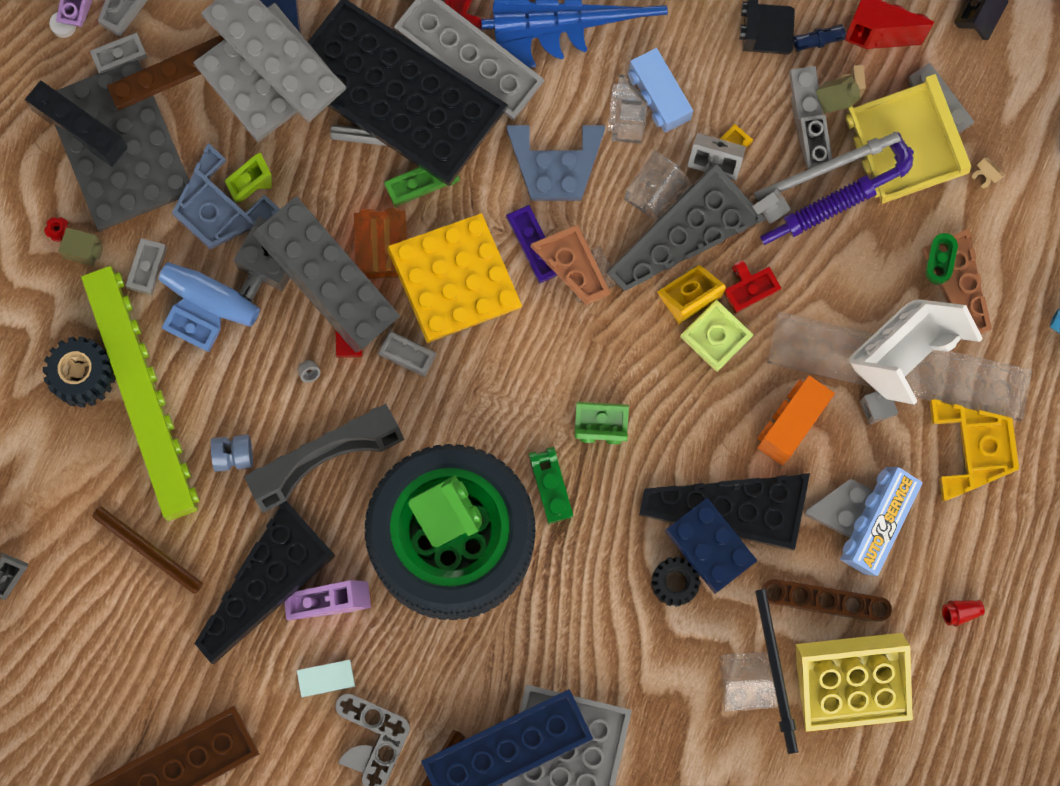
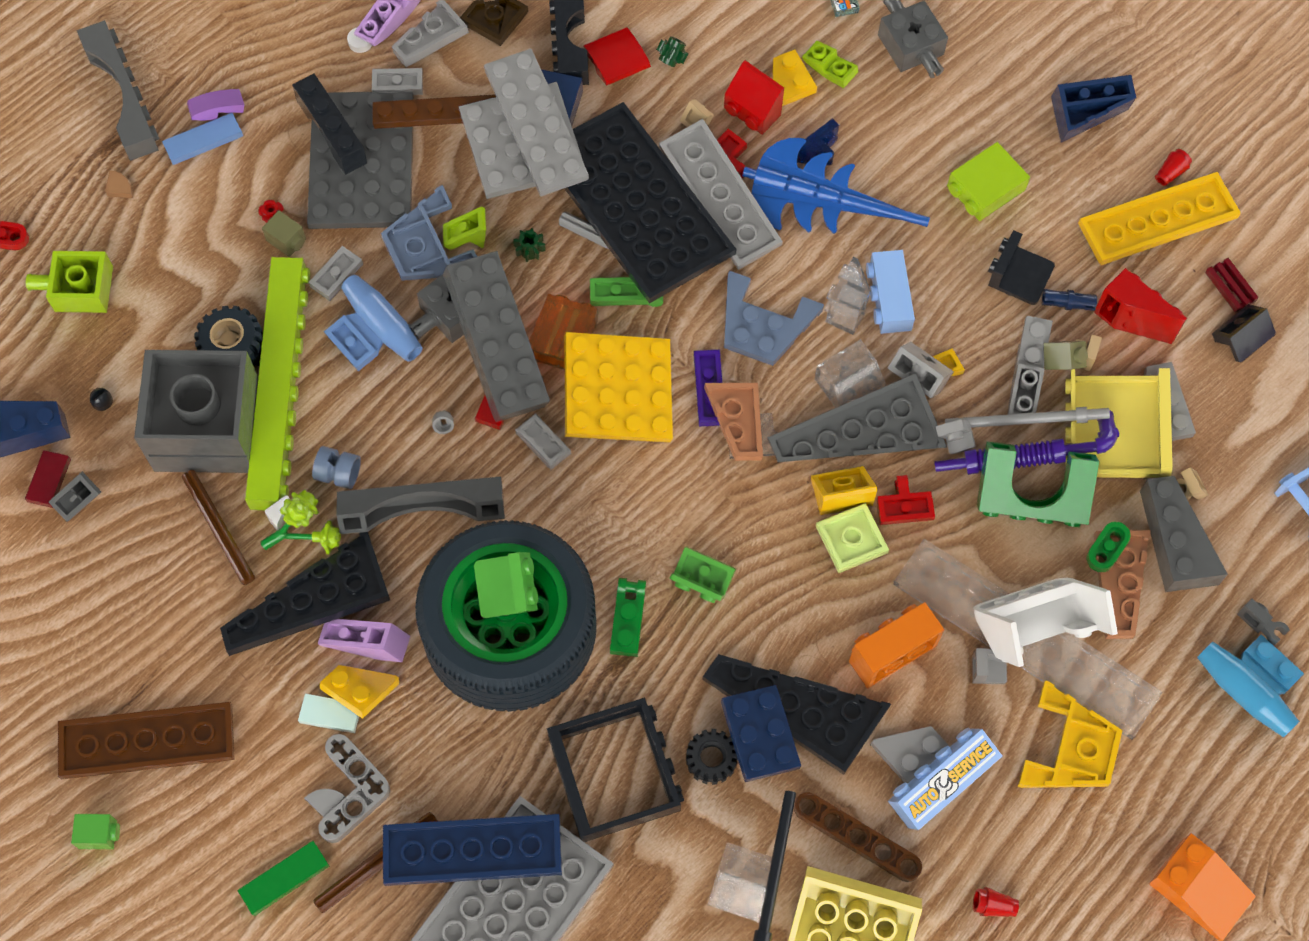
camera: 25 degrees right, 10 degrees down
(83, 453) = (196, 410): none -> dark grey piece
(199, 516) = (274, 515): none -> white slope
(221, 514) = (297, 513): none -> lime plant
(314, 177) = (529, 244): none -> dark green gear
(341, 646) = (358, 688): none -> yellow wing
(624, 590) = (656, 742): none -> black window
(892, 232) = (1069, 504): none -> arch
(995, 225) = (1178, 538): none -> dark grey wedge

